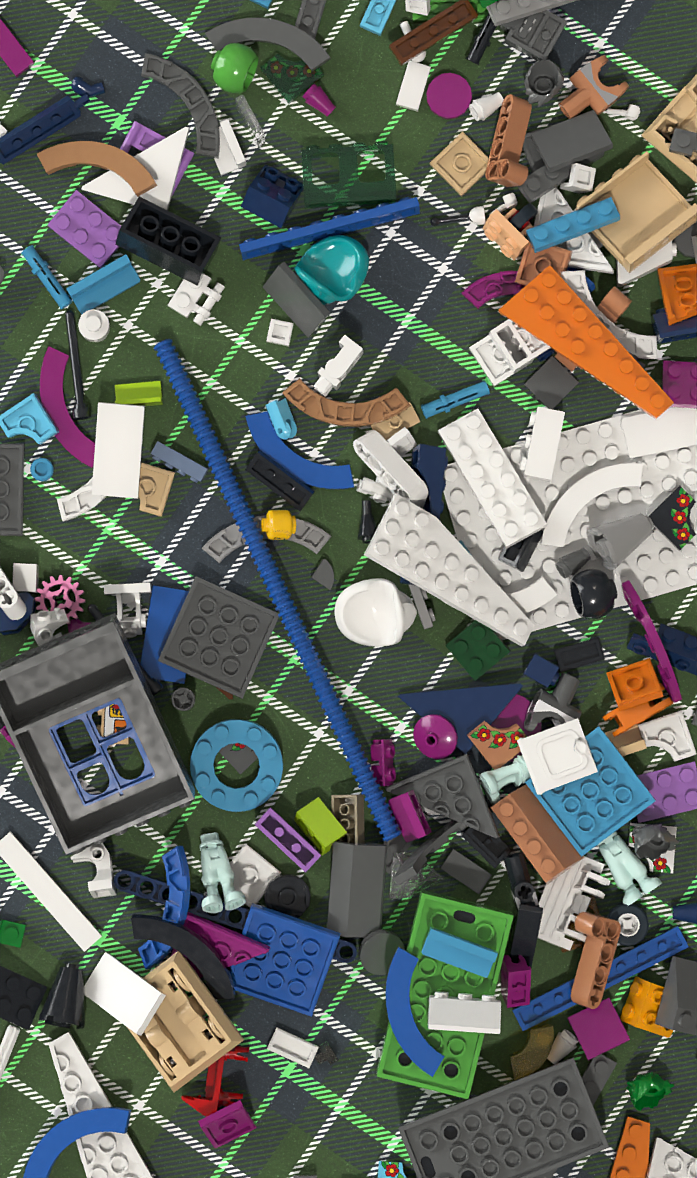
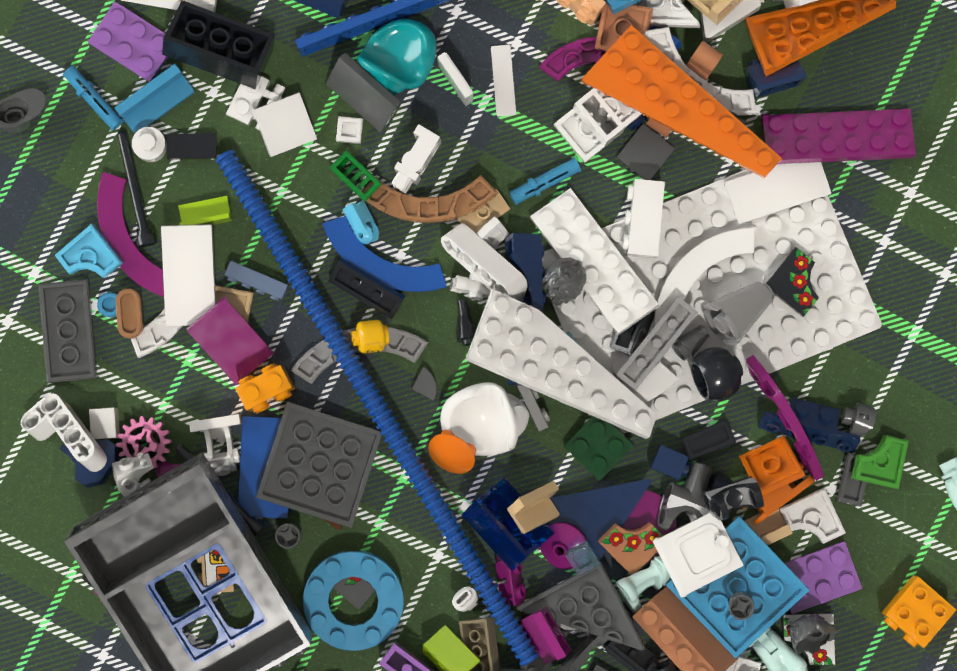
camera: 10 degrees left, 0 degrees up
(59, 479) = (129, 313): none -> medium nougat tile
(133, 331) = (192, 146): none -> black tile
(149, 514) = (230, 340): none -> magenta tile
(178, 561) = (260, 390): none -> light orange brick
(220, 321) = (284, 124): none -> white tile
(270, 360) = (341, 162): none -> green slope
(339, 775) = (465, 599): none -> white piece
(342, 640) = (452, 452): none -> orange dish
(383, 296) = (455, 78): none -> white tile
(386, 710) = (497, 528): none -> clear blue piece
(412, 698) = (534, 508): none -> tan panel
(427, 302) = (503, 80): none -> white sticker
(451, 748) = (582, 558): none -> clear light blue plate
(462, 493) = (564, 280): none -> dark grey hair
(541, 560) = (656, 343): none -> light grey plate
(589, 810) = (744, 607): none -> dark grey wheel
(590, 706) = (728, 495): none -> black connector

